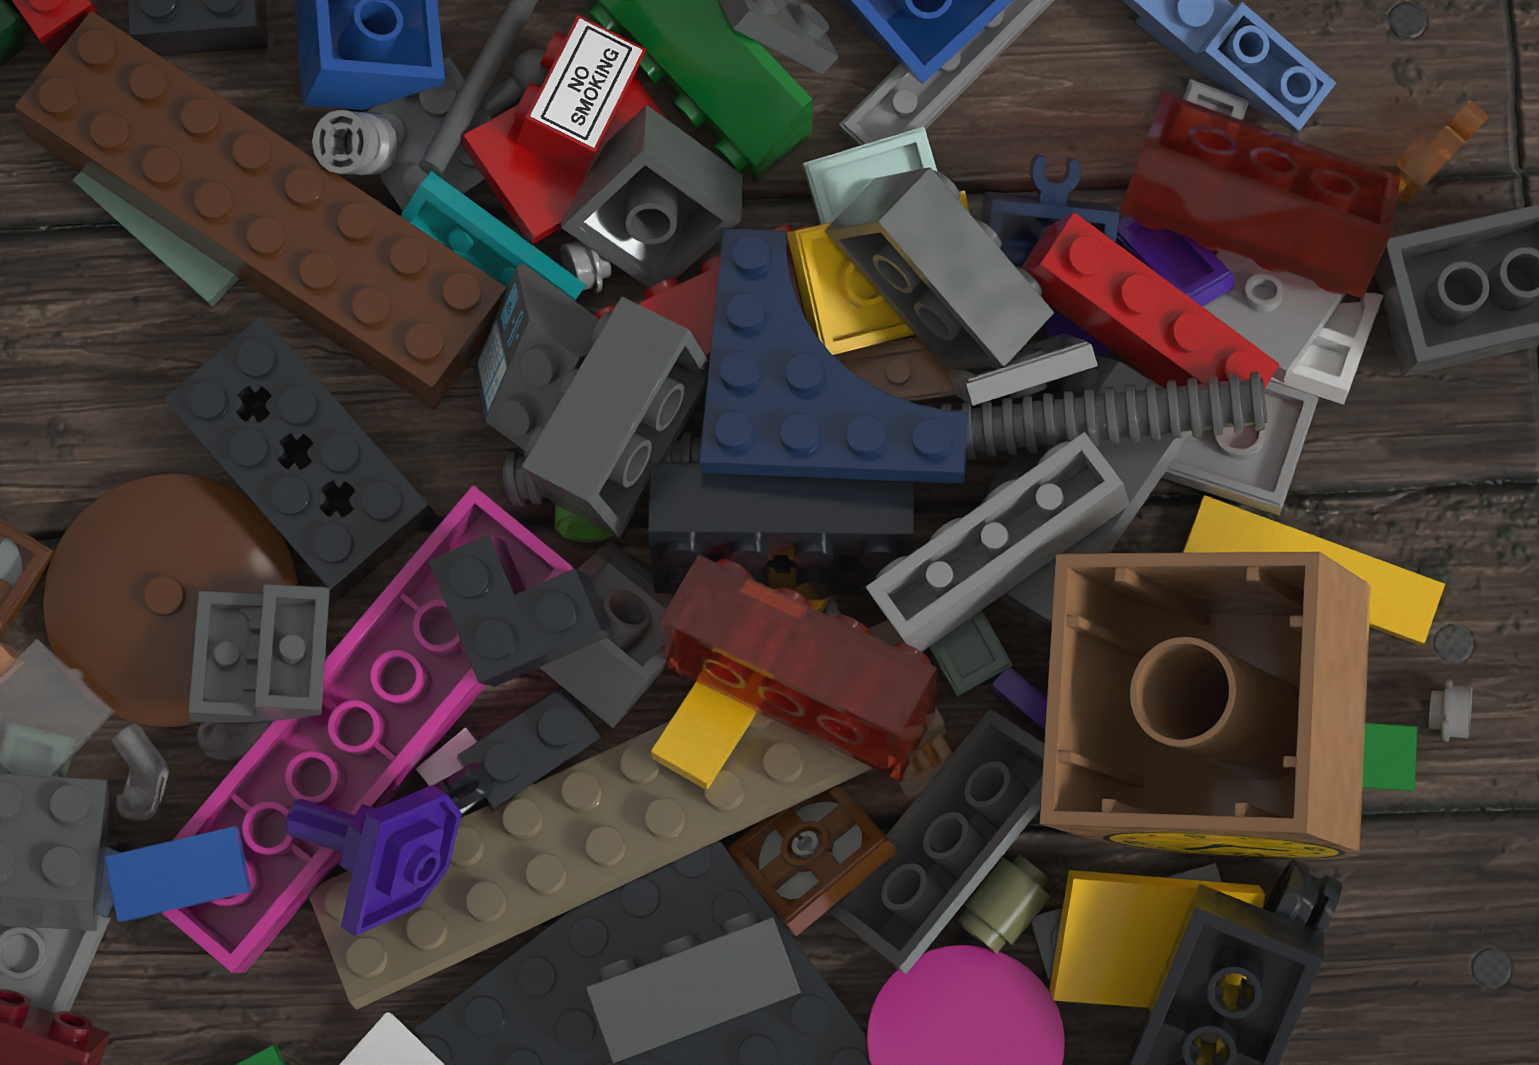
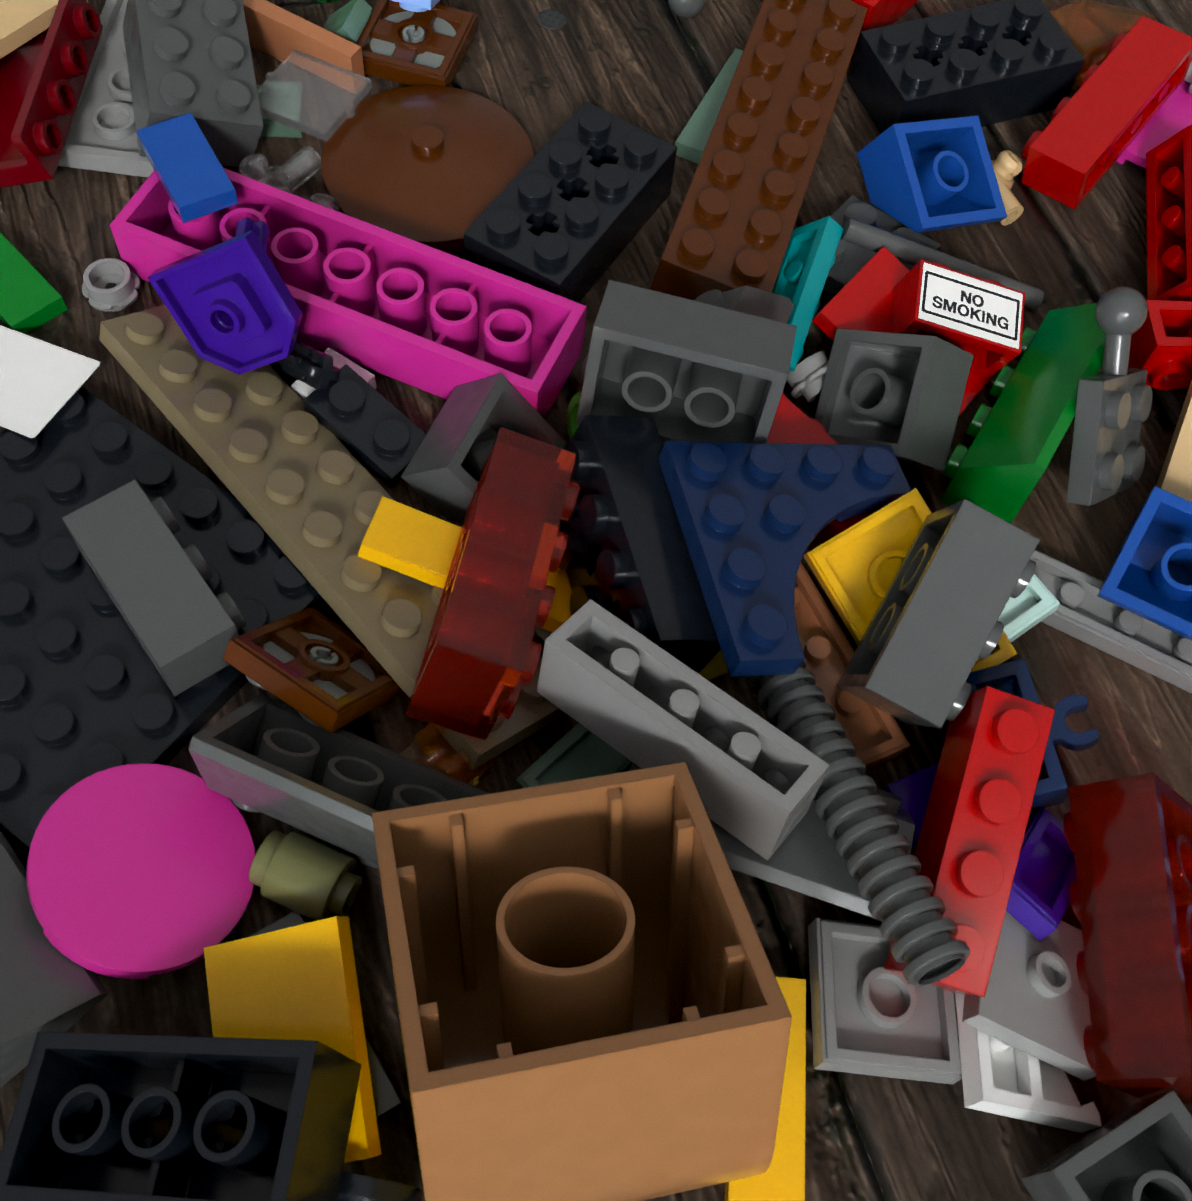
camera: 65 degrees right, 20 degrees down
(249, 991) = (110, 285): none -> light grey plate
(259, 655) = (392, 190): dark grey slope -> none
(370, 143) = (842, 177): light grey wheel -> none
(510, 627) = (475, 335): black brick -> none
(1025, 371) = (870, 729): light grey plate -> none

